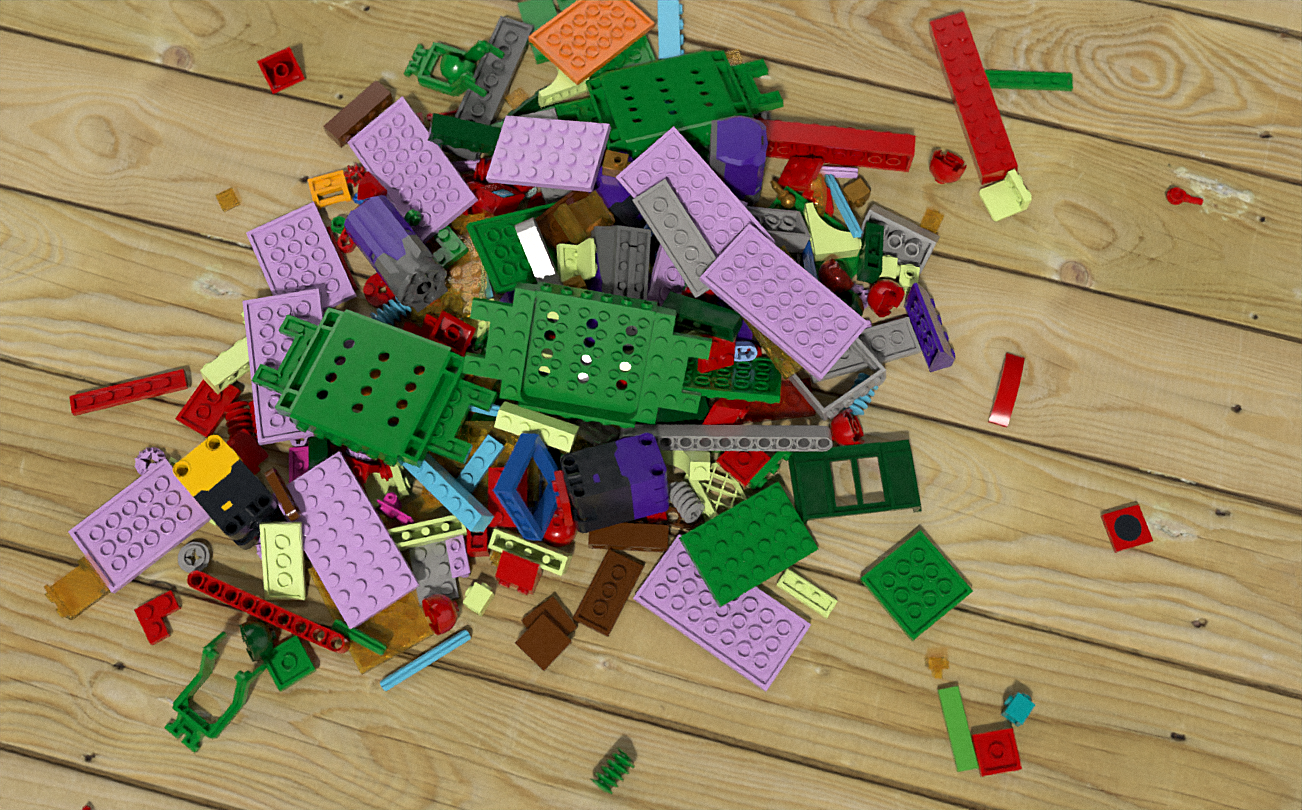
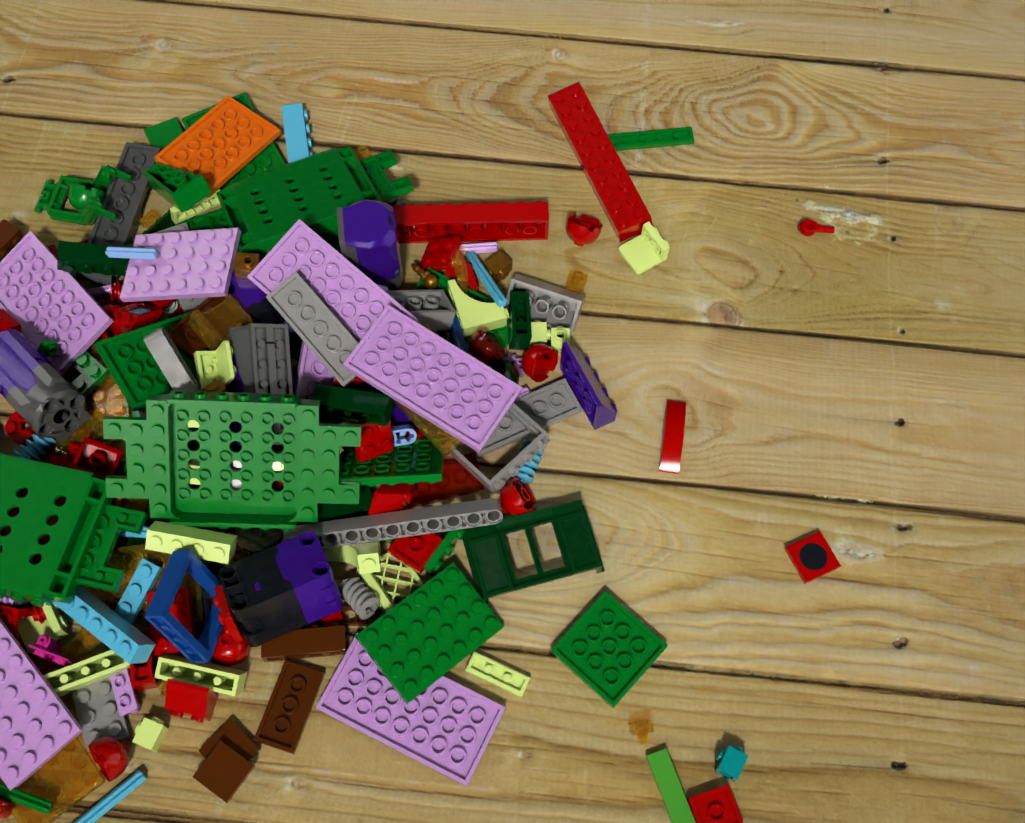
camera: 10 degrees left, 5 degrees down
(502, 134) = (131, 252): none -> light blue axle
(548, 70) = (176, 186): none -> green wedge

